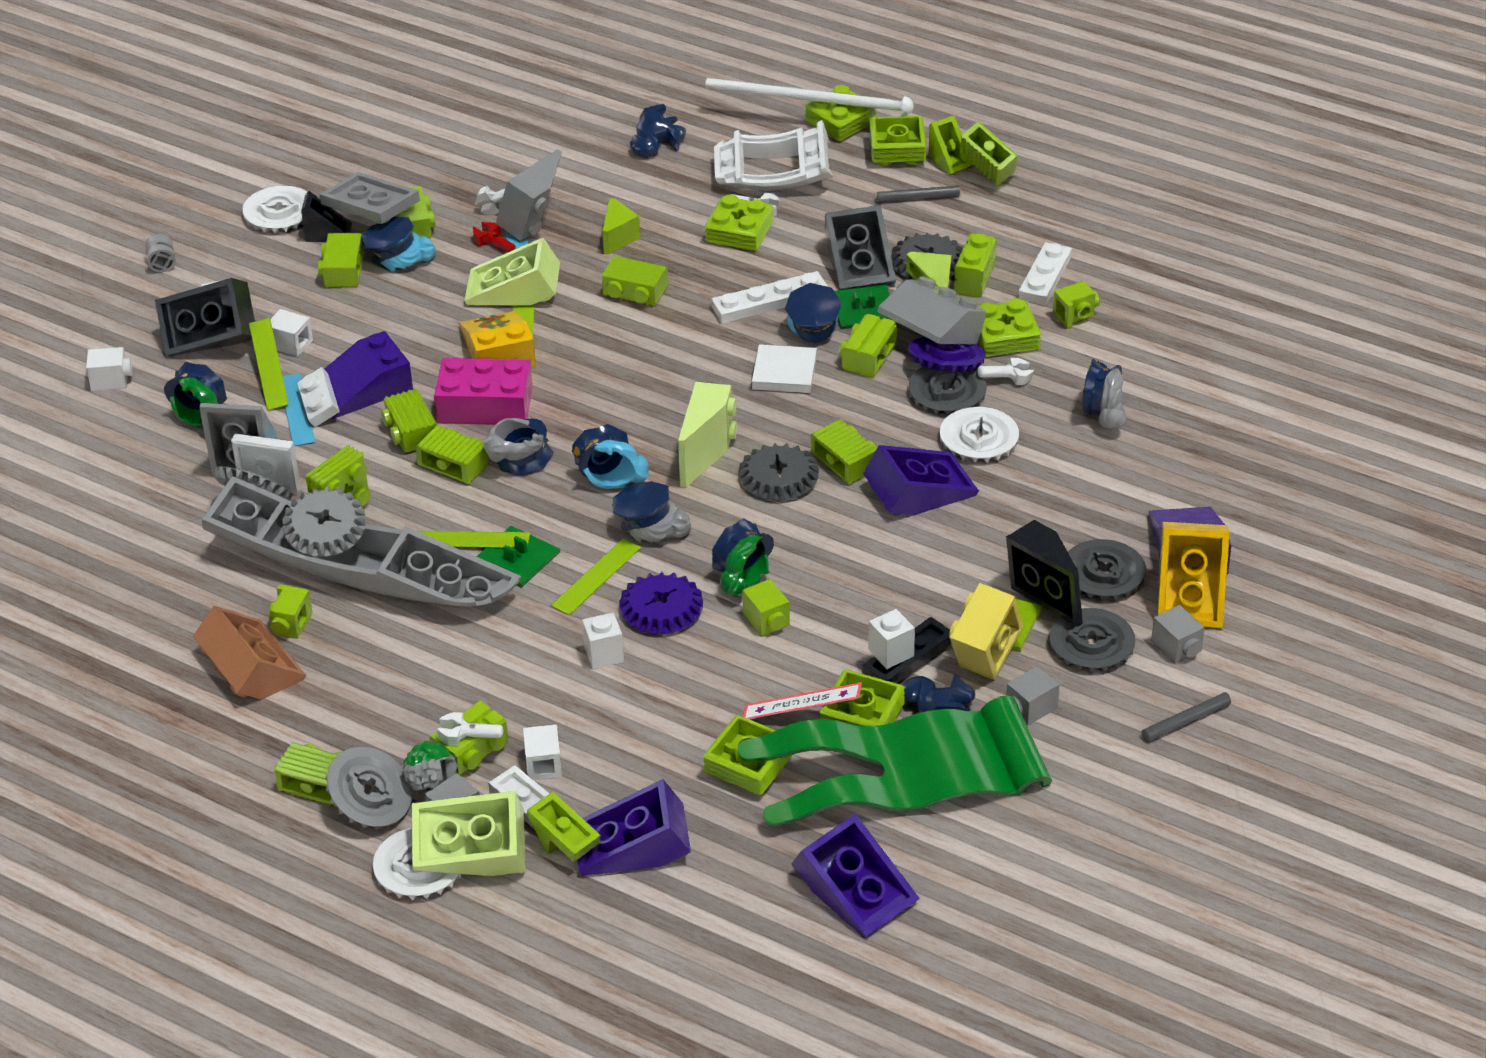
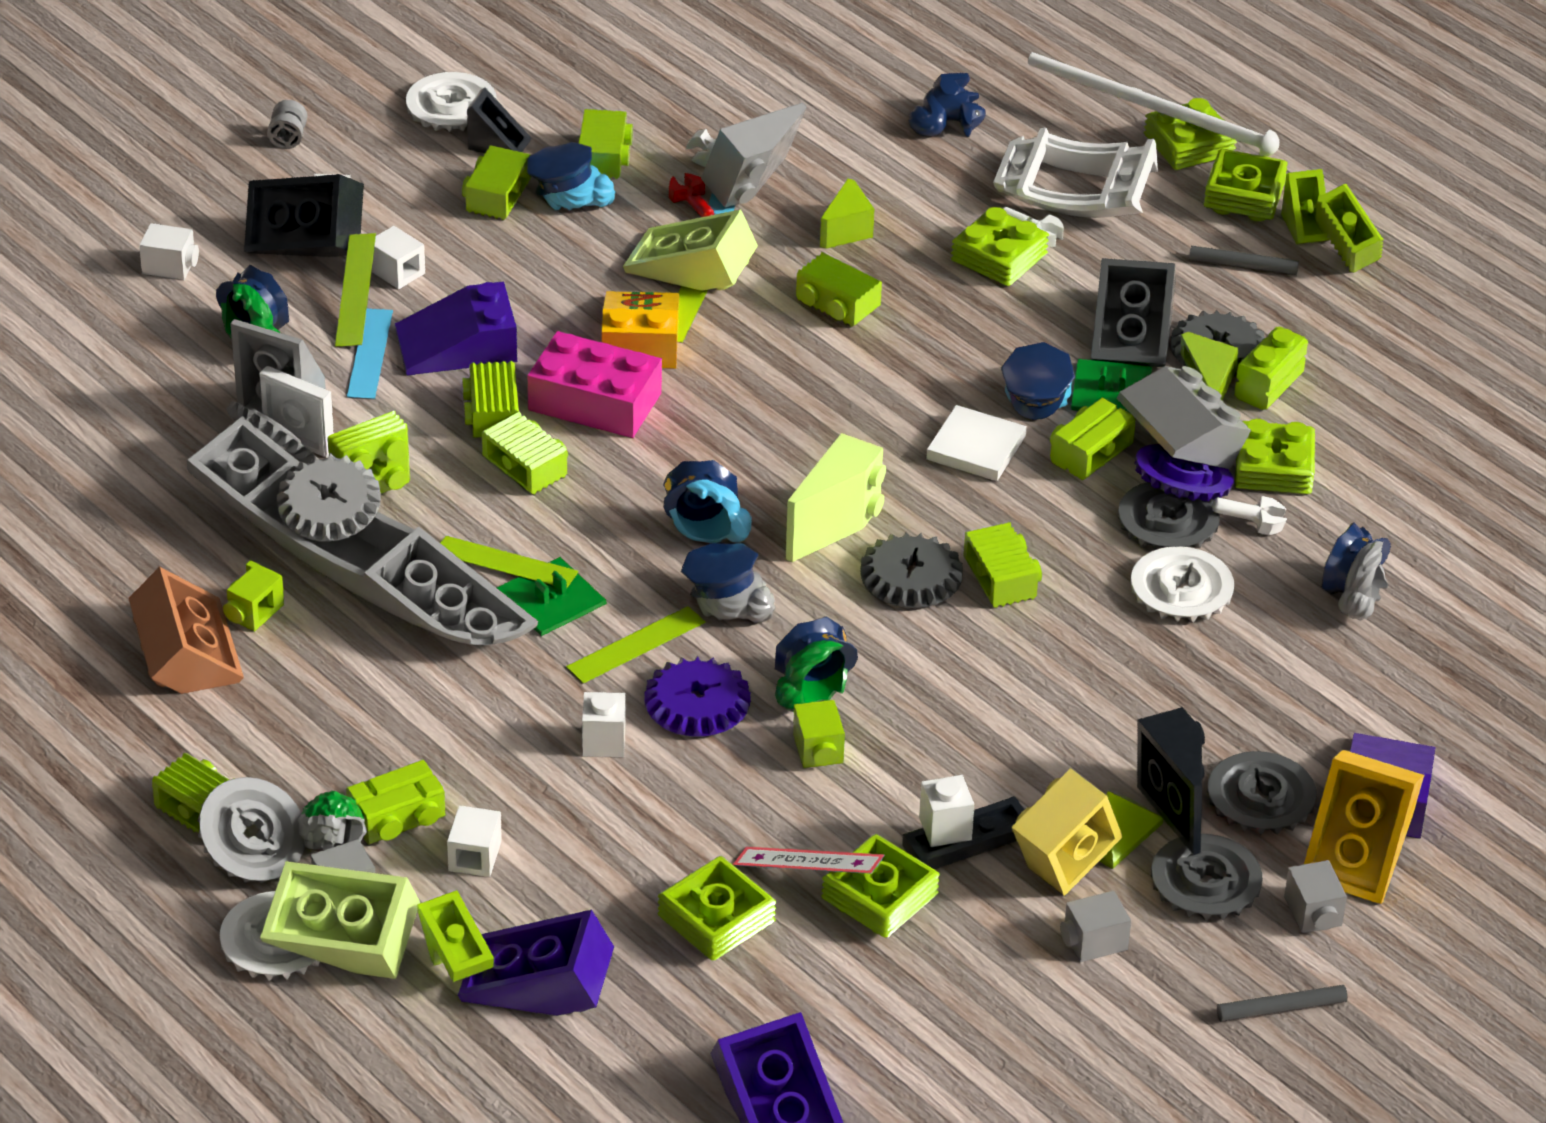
camera: 15 degrees right, 0 degrees up
(318, 397) = (397, 344): white plate -> none
(369, 197) = (555, 112): light grey plate -> none
(455, 728) = (383, 787): white bar -> none
(518, 445) = (607, 460): piece -> none
(526, 789) = (426, 875): white plate -> none
(760, 298) = (988, 348): white plate -> none
(917, 479) = (1077, 621): dark purple slope -> none
(922, 757) = (923, 965): green flag -> none
(928, 697) = (981, 907): dark blue animal -> none
(1045, 273) = (1359, 399): white plate -> none
(1074, 303) = (1377, 446): lime brick -> none

